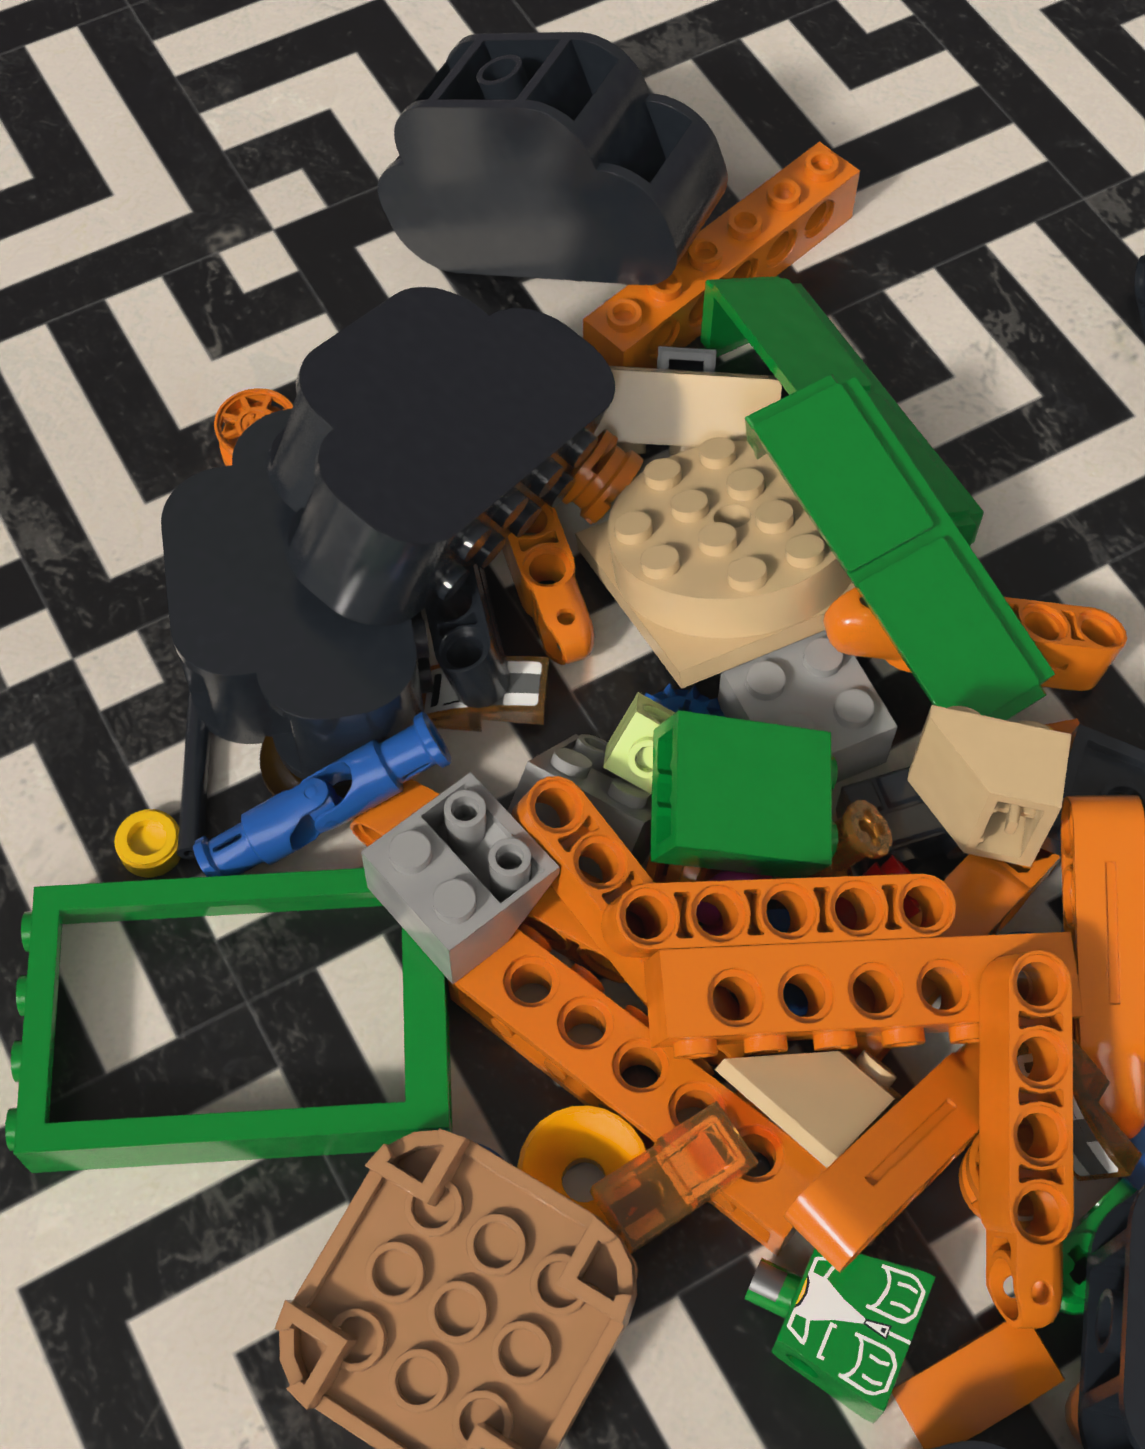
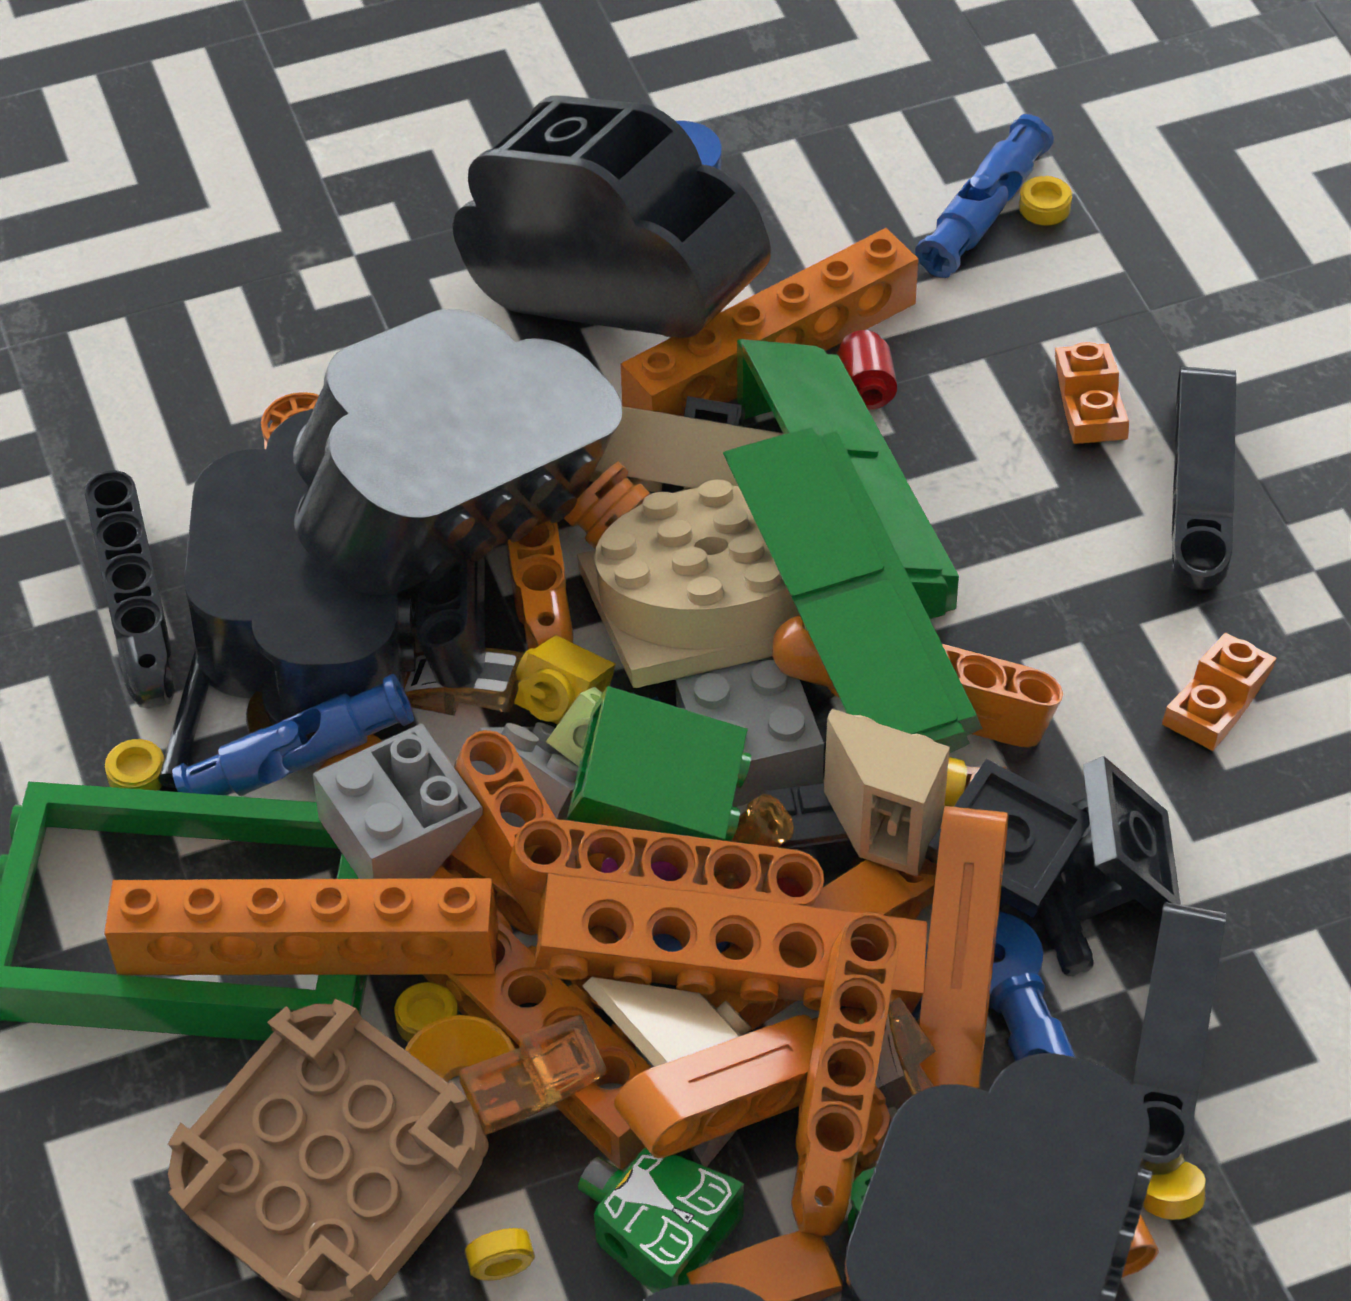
camera: 10 degrees right, 10 degrees down
(100, 613) = (130, 588): none -> black piece
(378, 1036) = (302, 926): none -> orange brick
(525, 1096) = (421, 1006): none -> yellow tile
(594, 684) = (556, 675): none -> yellow brick
(675, 1397) = (499, 1254): none -> yellow tile
(831, 289) = (870, 367): none -> red brick
(898, 97) = (984, 196): none -> blue piece
(954, 95) = (1045, 200): none -> yellow tile
(1051, 292) = (1091, 393): none -> orange slope

